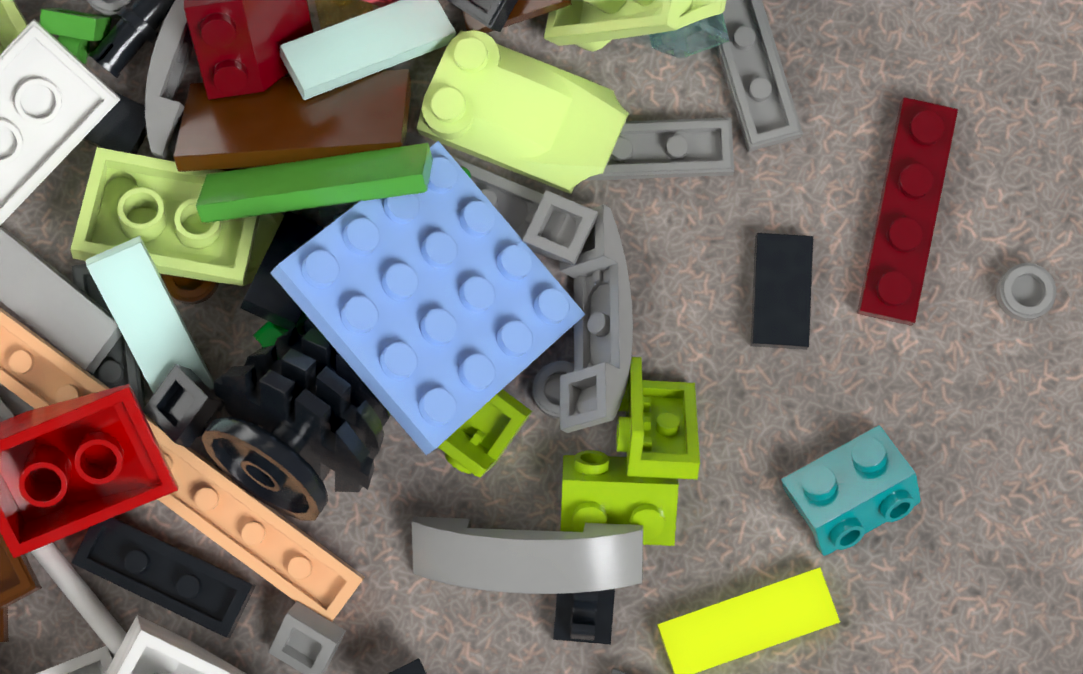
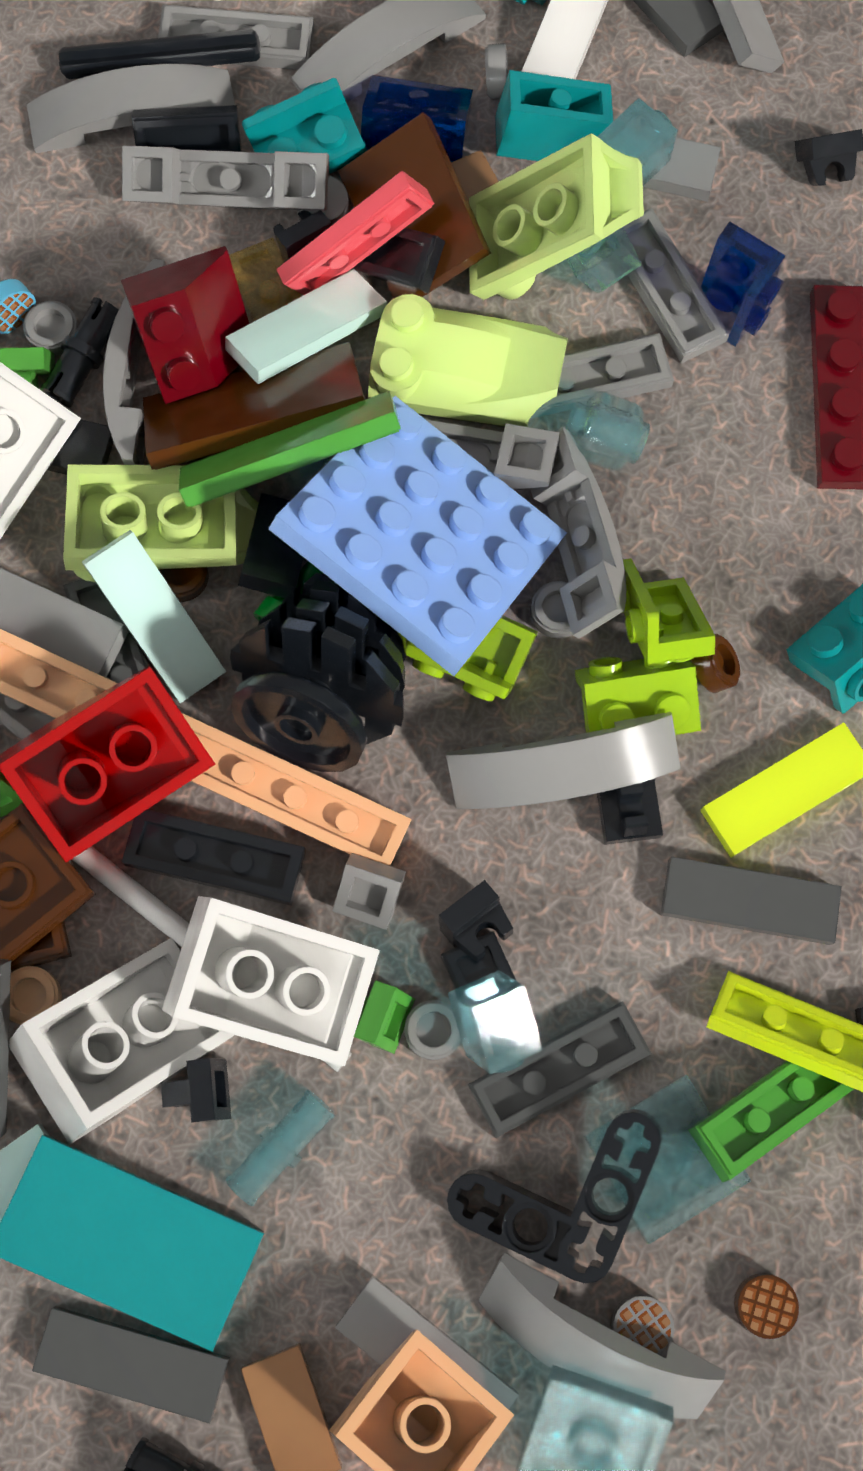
camera: 15 degrees left, 5 degrees down
(183, 406) = (202, 688): black tile -> none
(652, 214) = (608, 430): none -> clear light blue head
(712, 484) = (718, 670): none -> reddish brown tile
(782, 291) = (744, 479): black tile -> none
(824, 80) = (743, 279): none -> clear blue bracket

